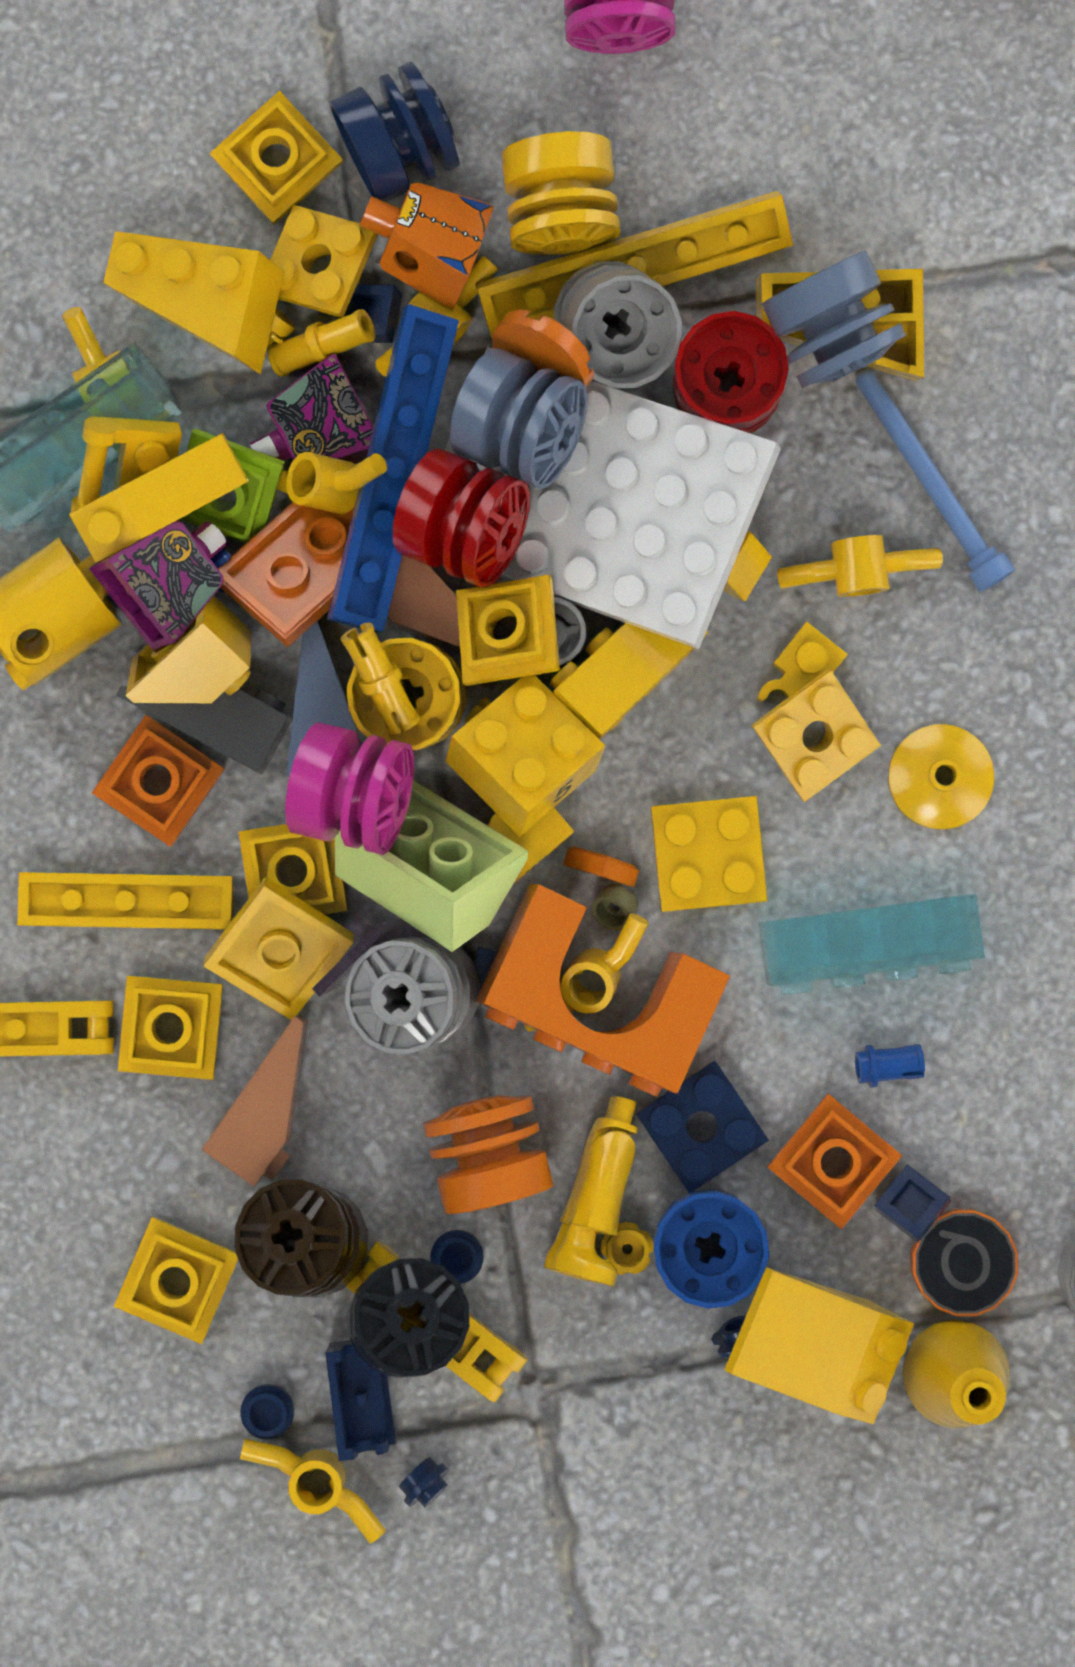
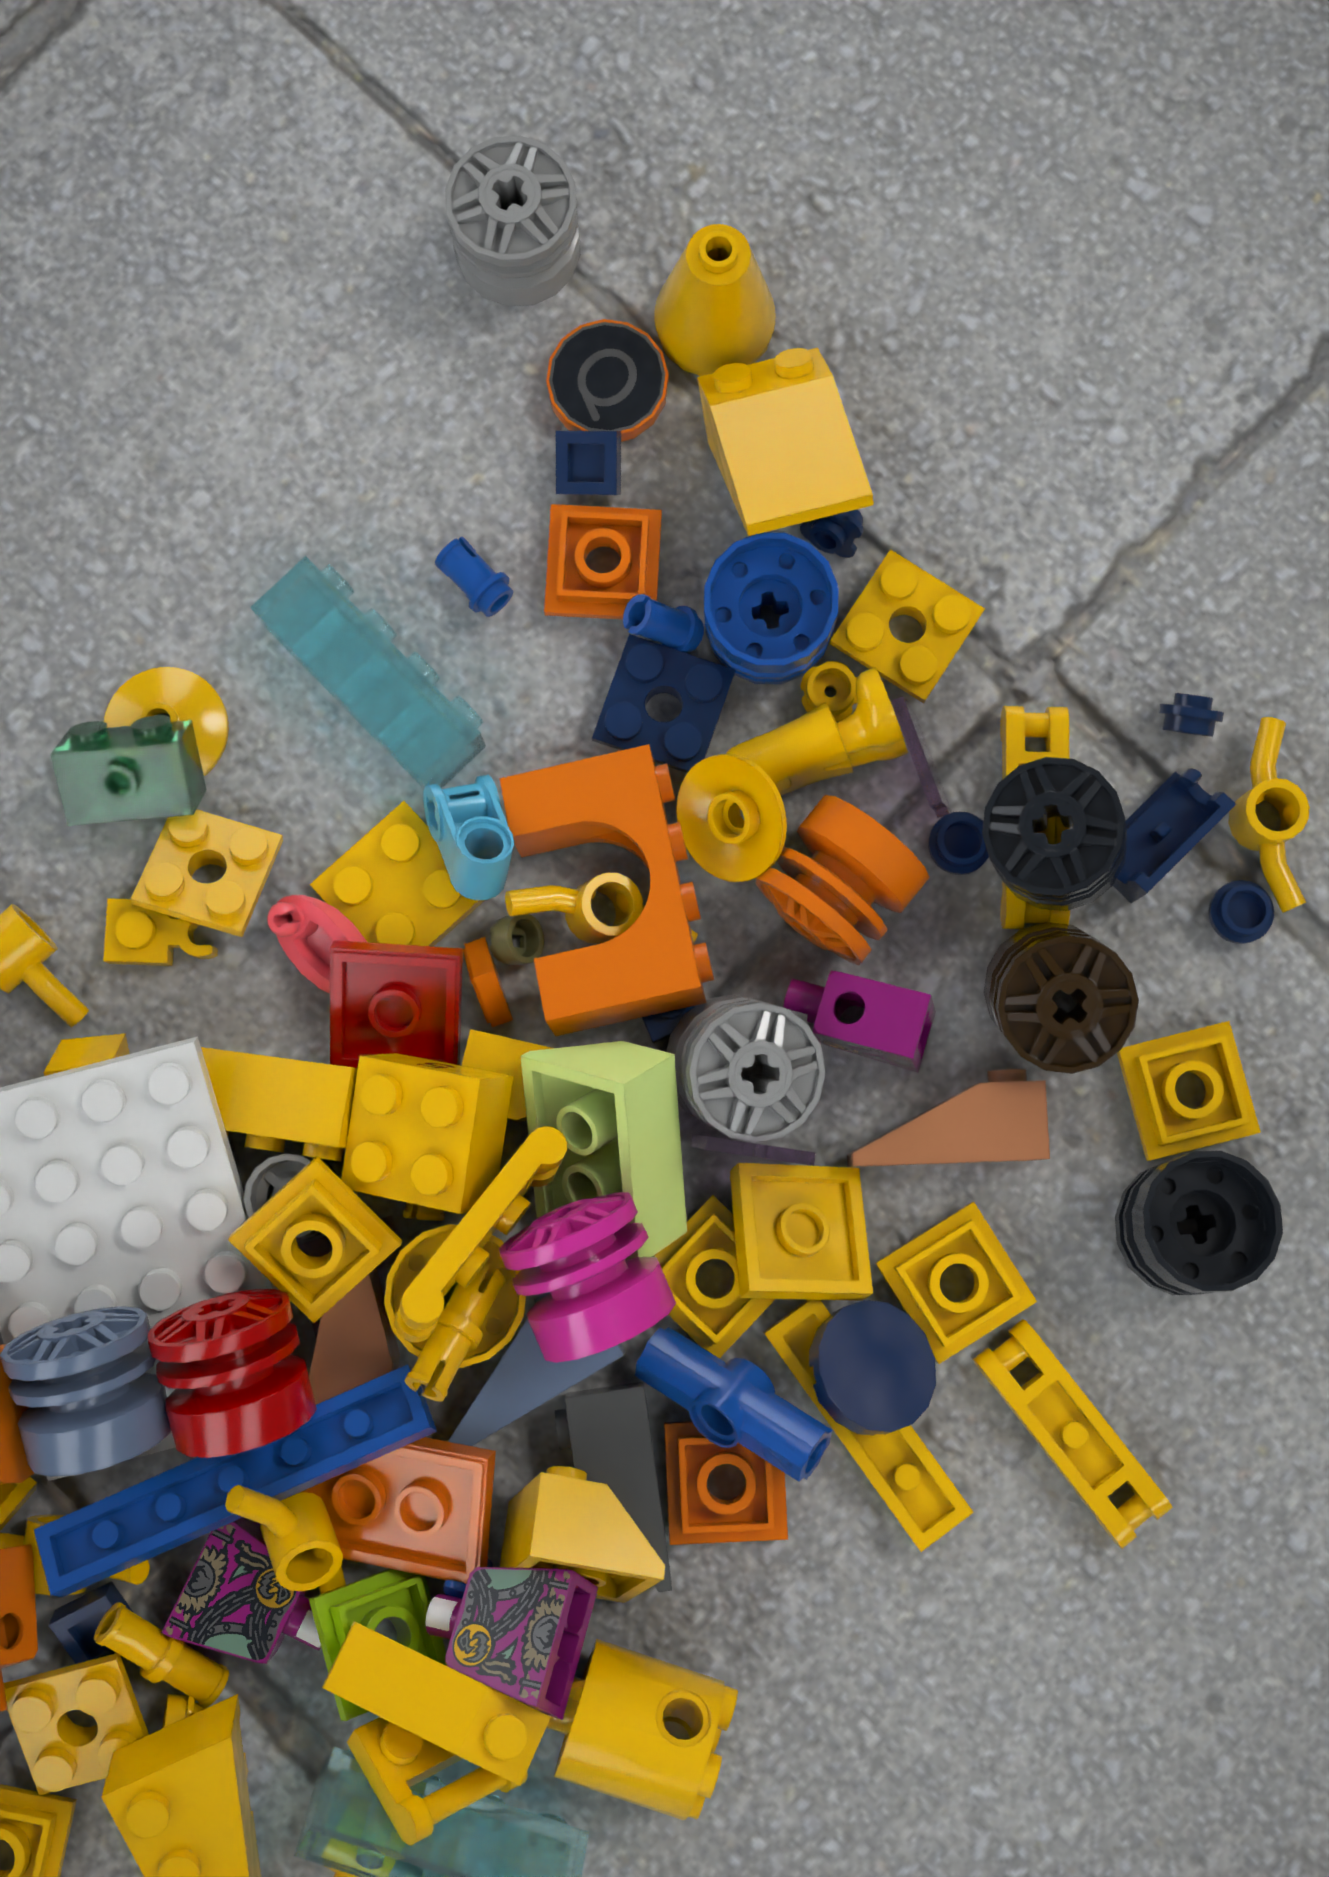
camera: 125 degrees left, 5 degrees down
(55, 1219) = (1234, 1216): none -> black wheel
(156, 930) = (872, 1368): none -> dark blue tile
(202, 822) = (733, 1403): none -> blue piece
(365, 1111) = (892, 1025): none -> magenta torso
(422, 717) = (462, 1252): none -> yellow plate
(531, 1273) = (921, 757): none -> clear purple piece
(588, 1095) = (712, 820): none -> yellow dish
(624, 1368) = (907, 590): none -> yellow piece
(631, 793) = (394, 1001): none -> red tile
(701, 776) = (306, 933): none -> coral arm
(715, 932) = (469, 827): none -> medium azure piece
(751, 1173) = (670, 626): none -> blue pin
(921, 730) = (128, 771): none -> clear green brick

